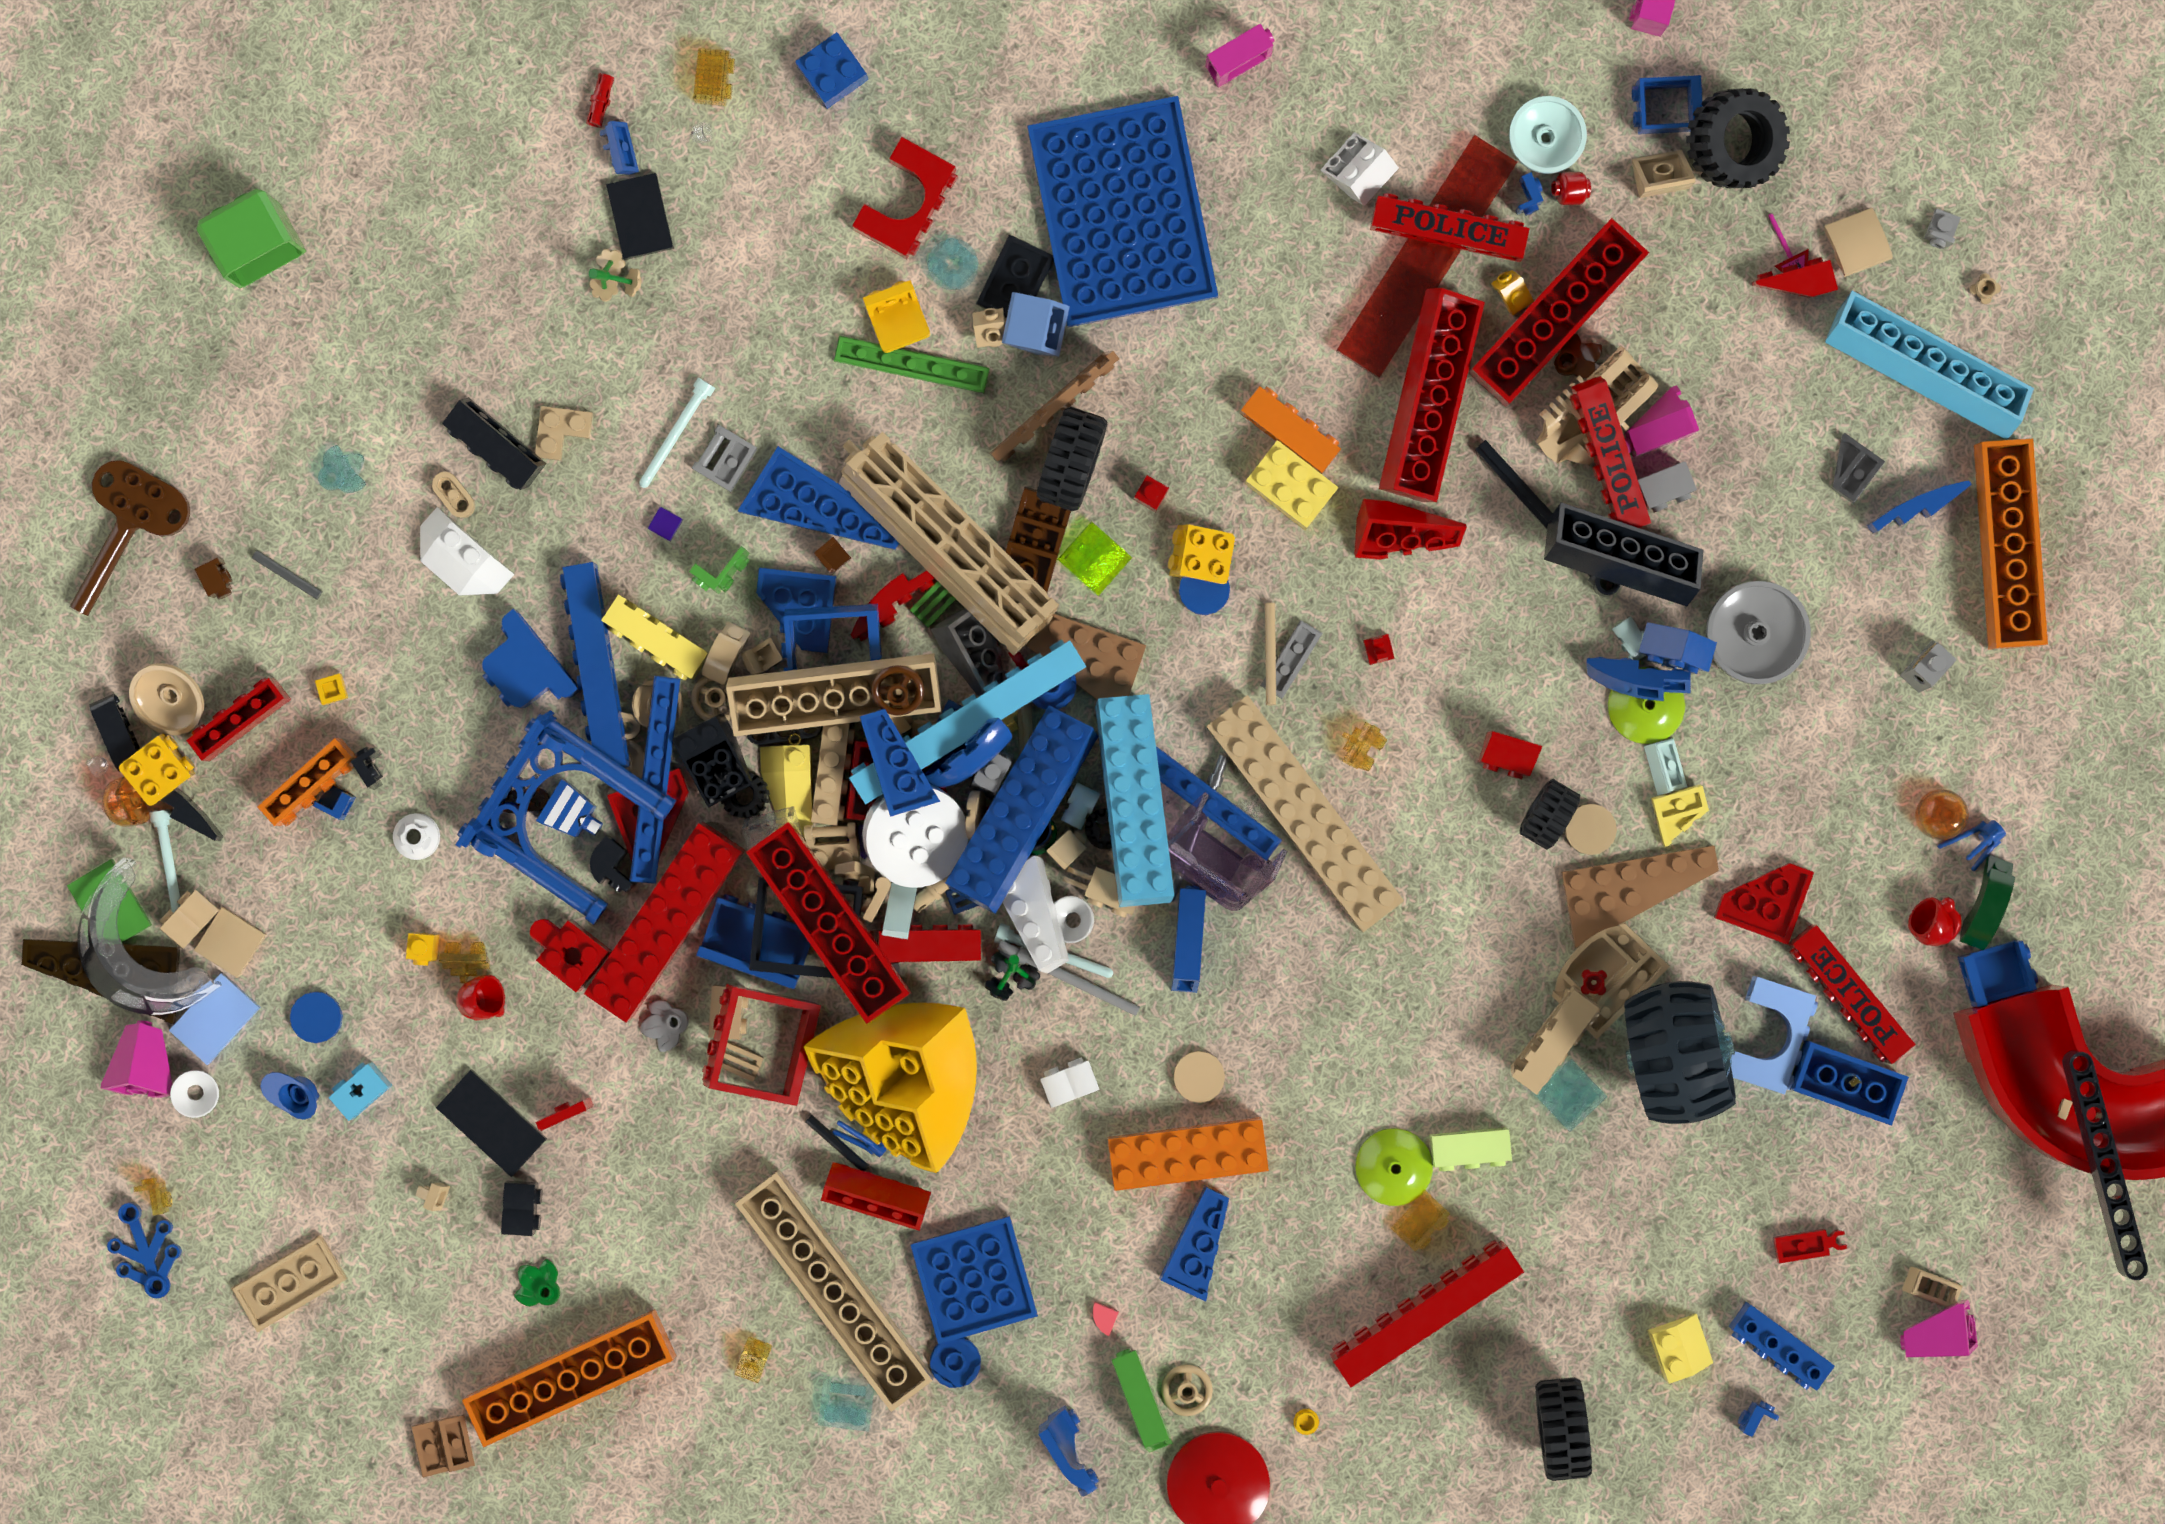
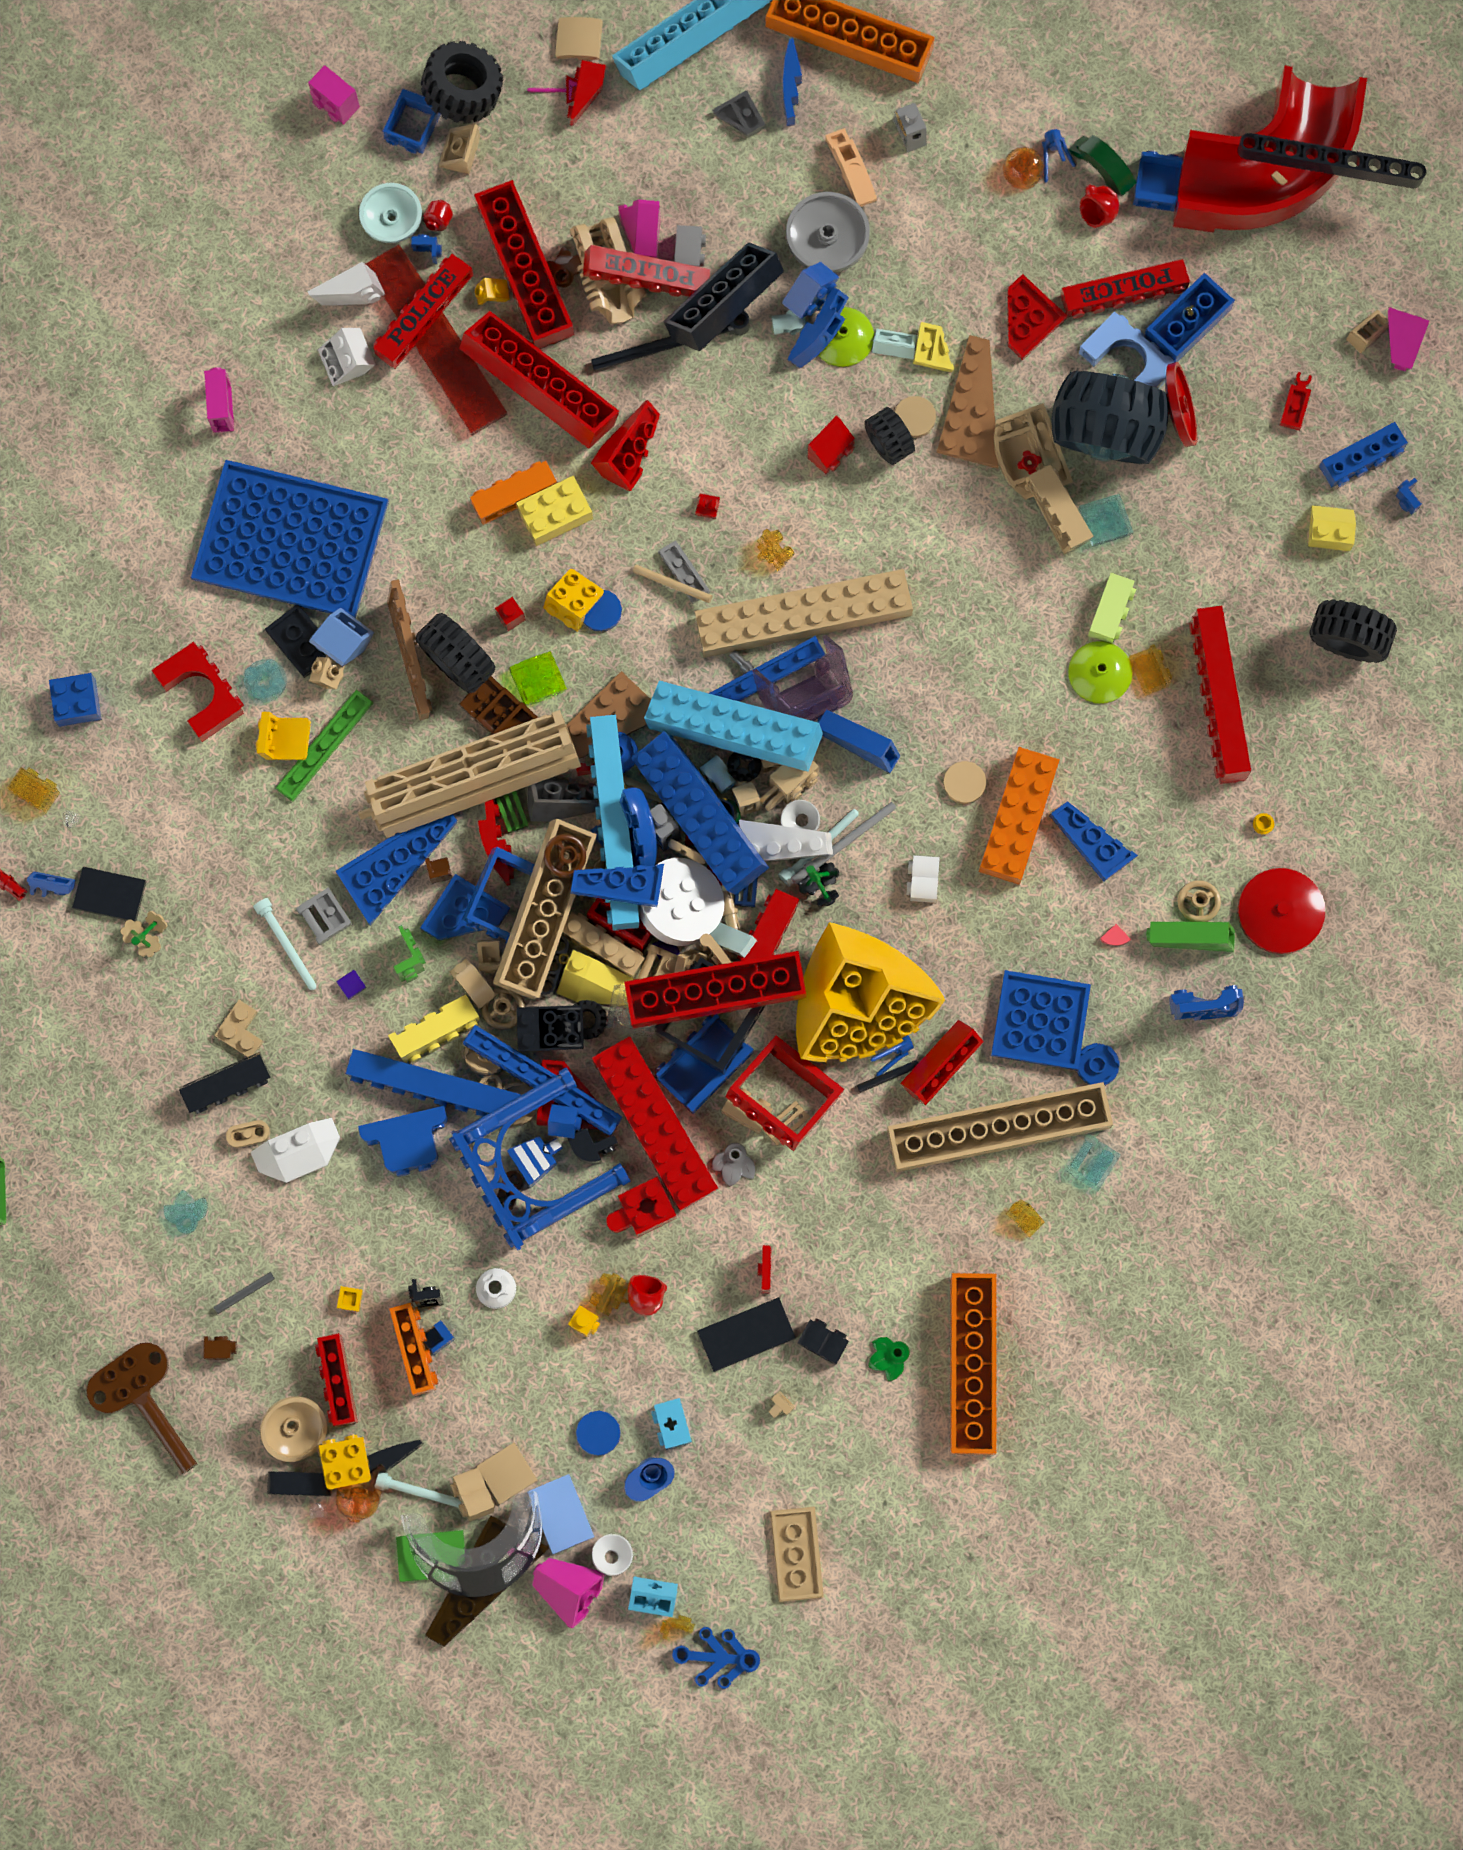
camera: 65 degrees left, 10 degrees down
(171, 1156) = (653, 1596): none -> medium azure brick
(442, 1445) = (980, 1492): medium nougat slope -> none
(619, 825) = (563, 1121): none -> blue brick
(1442, 140) = (351, 287): none -> white slope
(1737, 1122) = (1180, 404): none -> red dish
(1849, 622) = (852, 167): none -> light nougat slope

